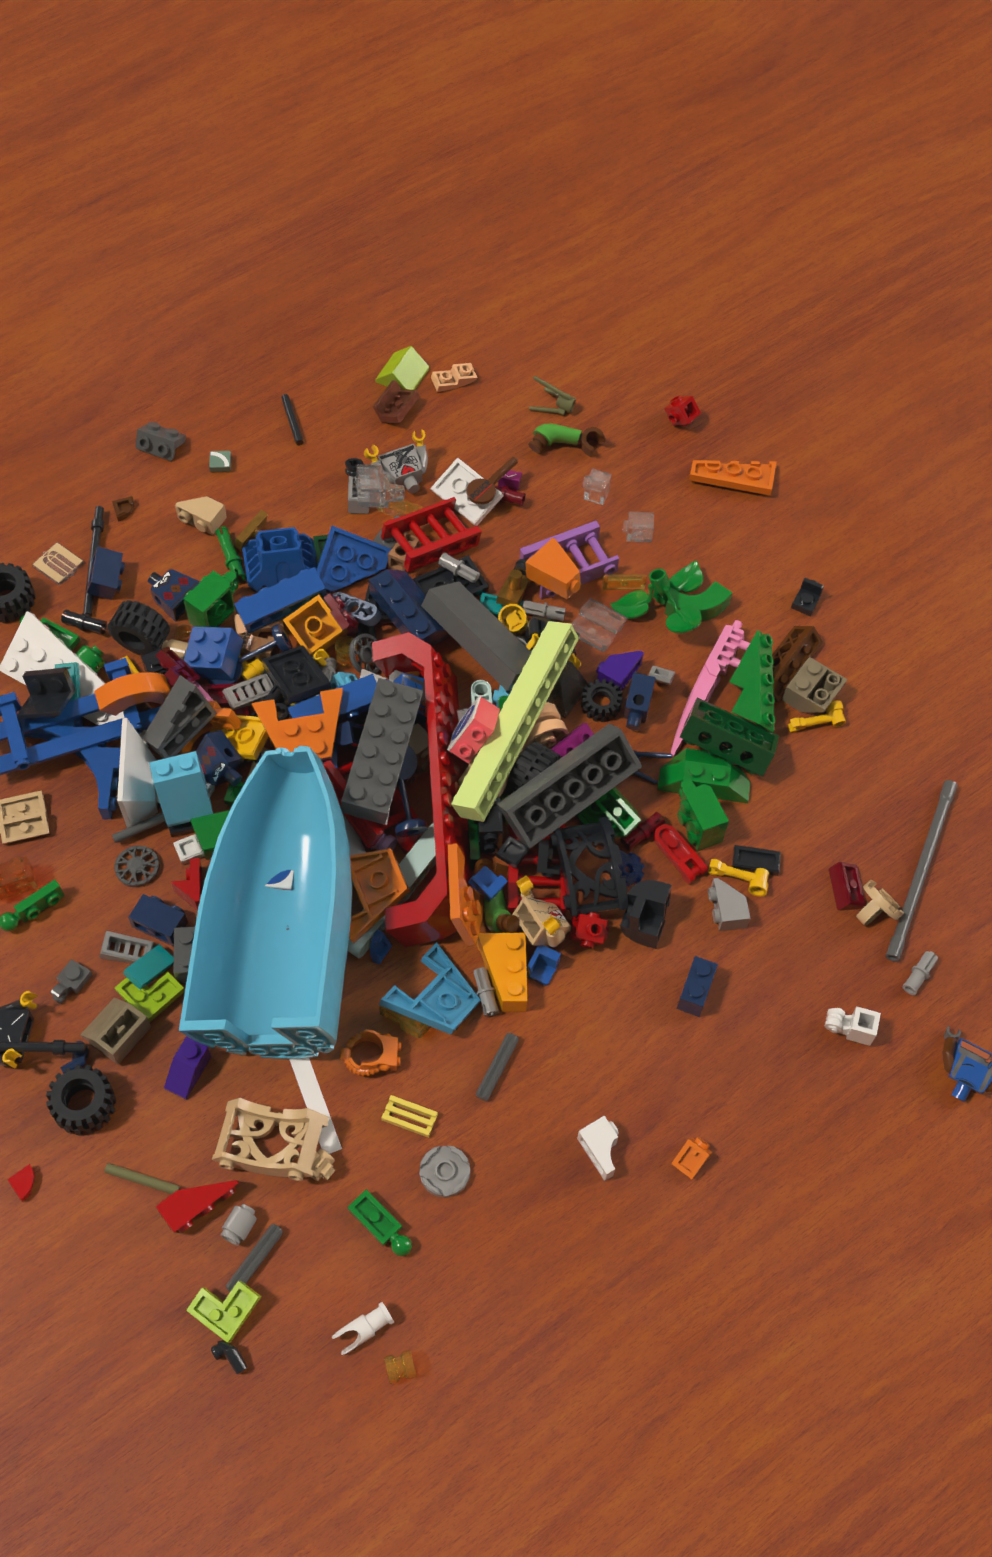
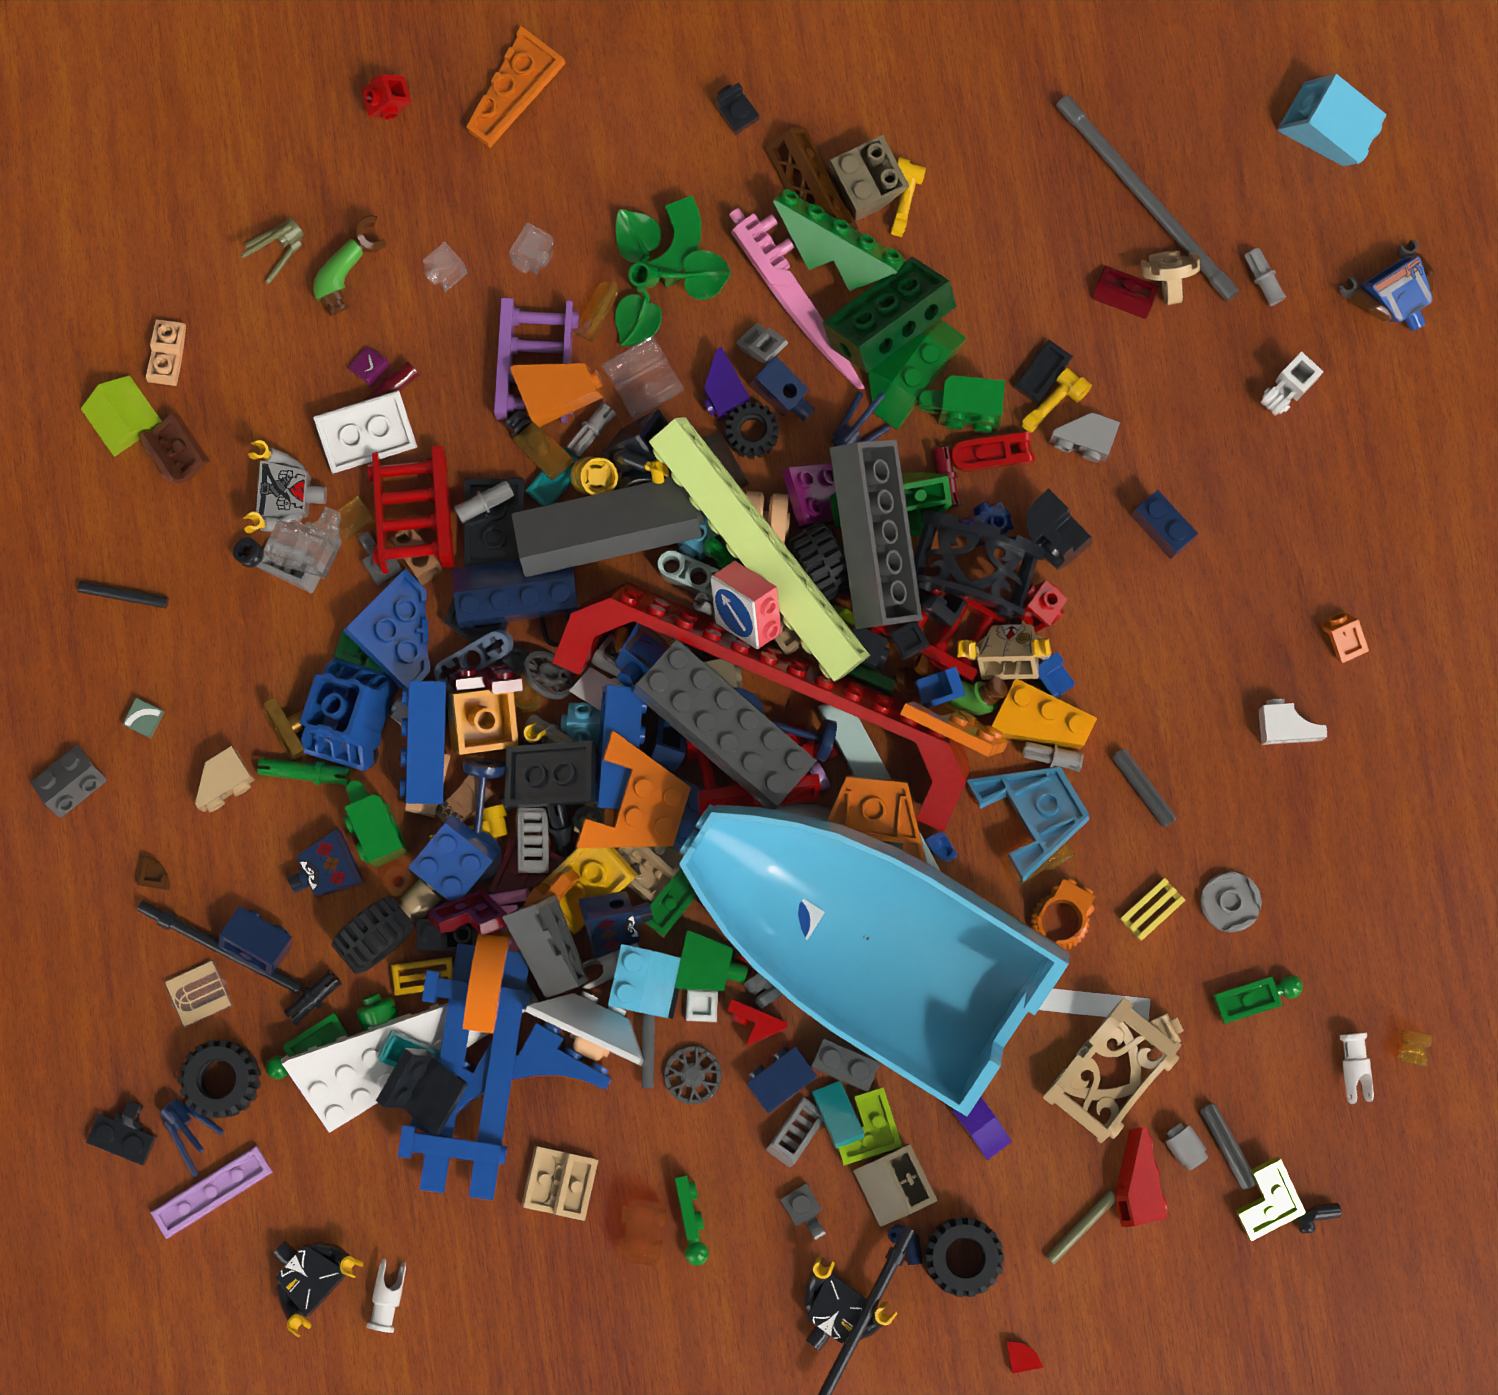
camera: 60 degrees left, 20 degrees up
(483, 490) = (384, 413): reddish brown piece -> none

